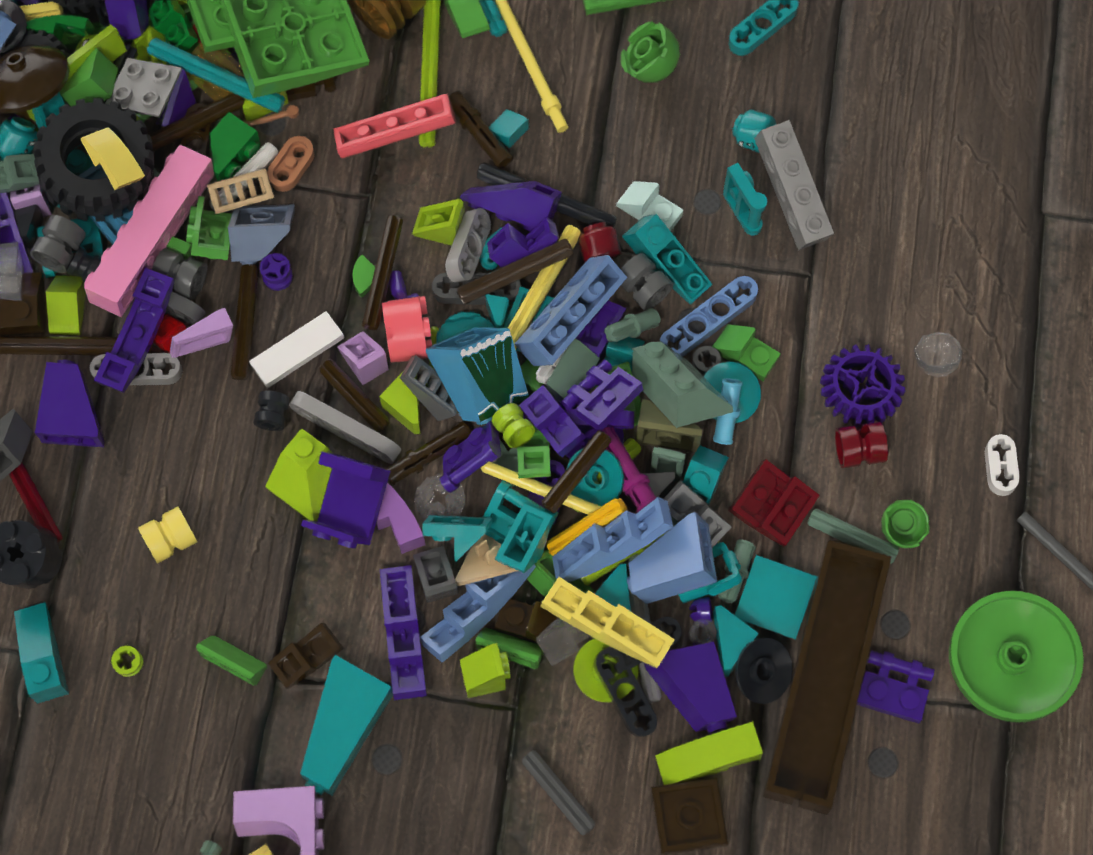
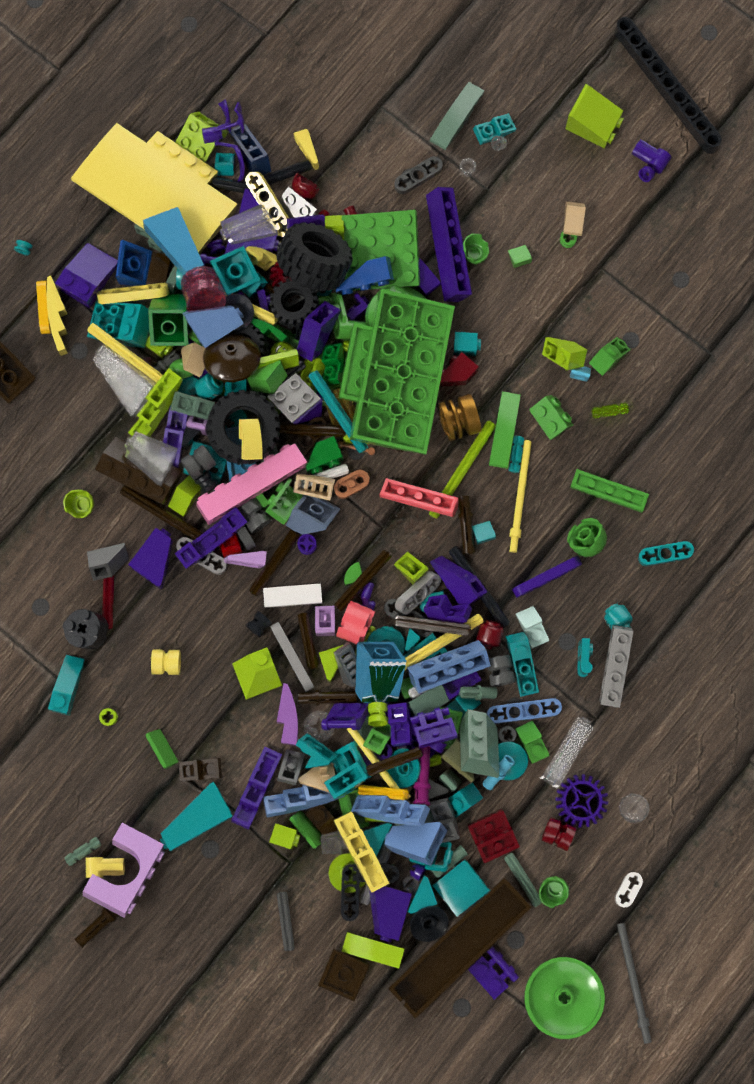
camera: 30 degrees right, 10 degrees up
(349, 501) = (269, 702): dark purple panel -> none
(628, 133) = (547, 576): none -> dark purple beam
(802, 335) = (567, 752): none -> clear slope

